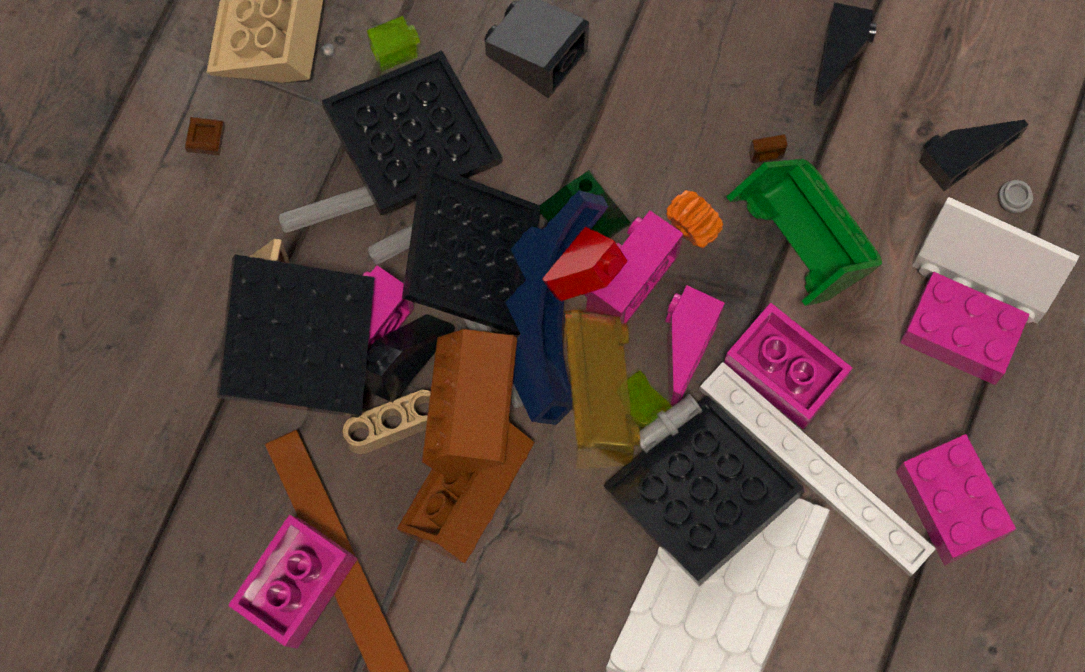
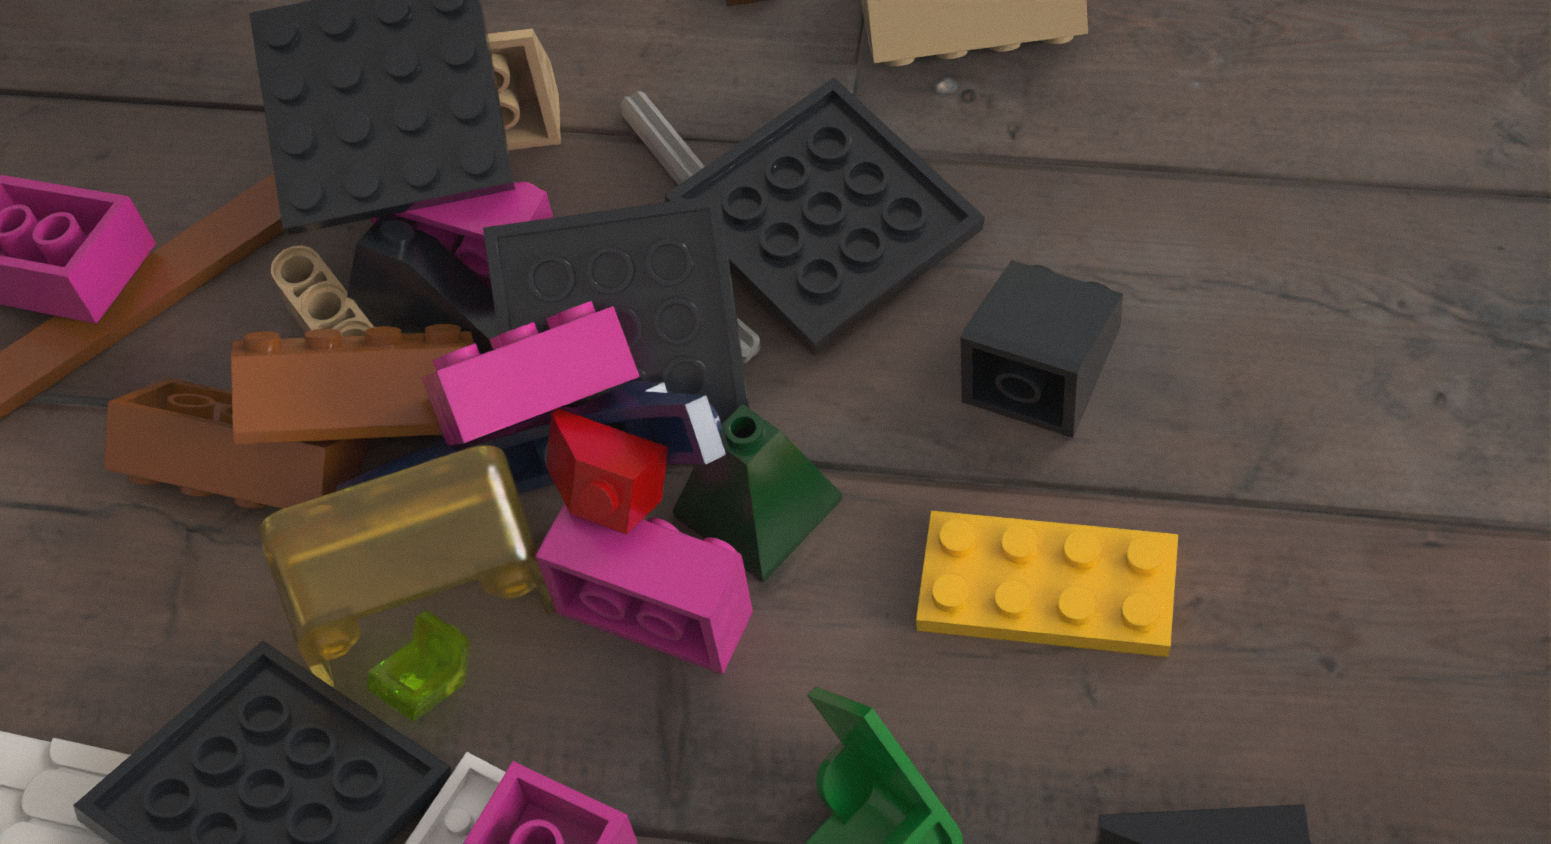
camera: 85 degrees right, 15 degrees down
(393, 43) = (974, 151): clear neon green brick -> none
(513, 292) = (528, 372): none -> dark pink brick
(668, 422) = (376, 704): light grey pin -> none
(672, 86) = (1048, 583): none -> yellow plate
(692, 324) = (527, 699): dark pink slope -> none
(694, 218) = (778, 663): orange gear -> none
(768, 149) = (963, 765): reddish brown tile -> none

